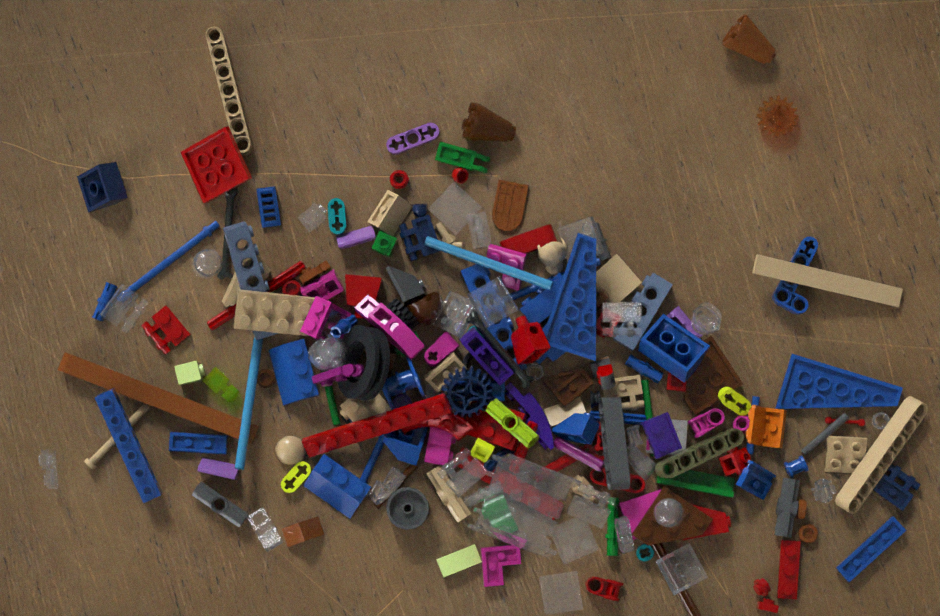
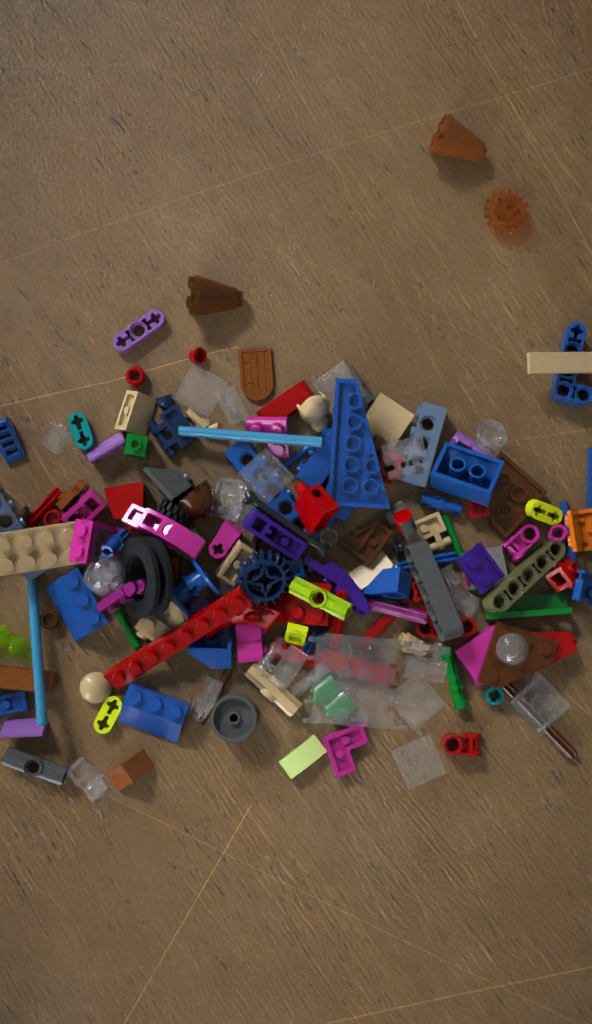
camera: 20 degrees left, 0 degrees up
(373, 458) = (184, 674): blue bar -> none
(460, 157) = (193, 337): green hinge -> none
(624, 534) = (469, 683): clear beam -> none

